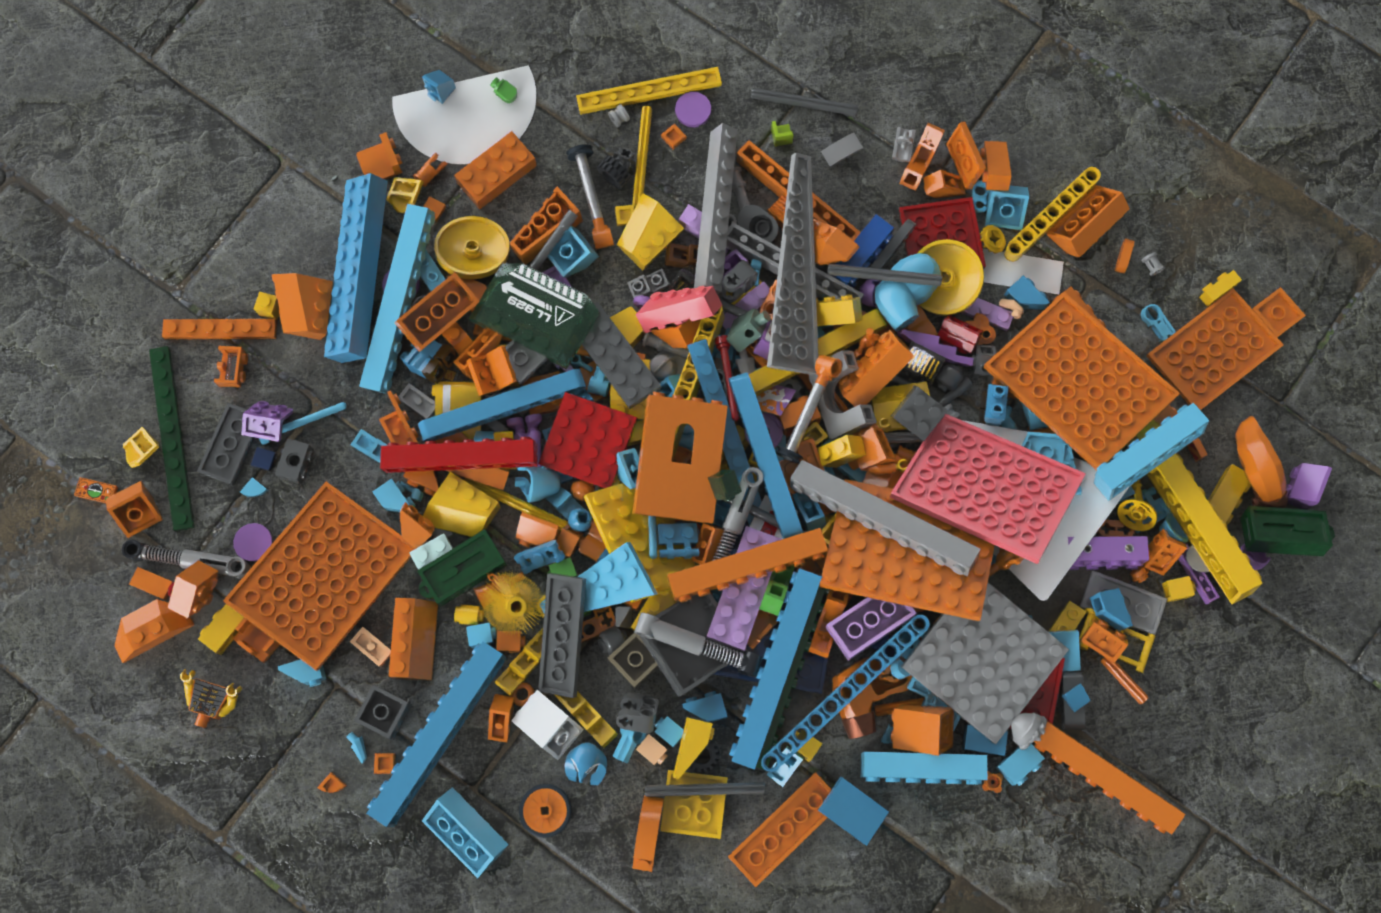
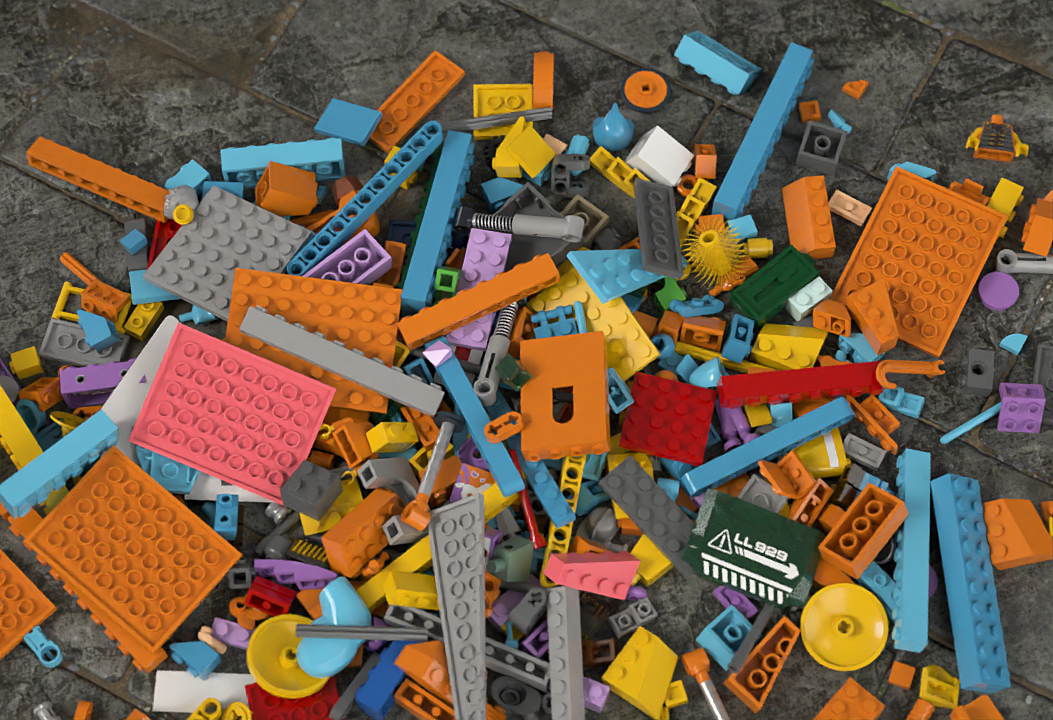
camera: 170 degrees right, 10 degrees down
(263, 459) = (1013, 373): dark blue tile -> none
(337, 470) = (906, 367): none -> orange piece
(375, 517) = (874, 316): none -> orange wedge
(507, 517) = (738, 339): none -> dark azure brick
(673, 735) = (531, 151): none -> yellow tile
(742, 434) = (503, 427): none -> orange beam
(792, 517) = (438, 353): none -> lavender slope
(996, 787) = (214, 161): orange plate -> none
(1027, 708) = (183, 214): none -> yellow plate

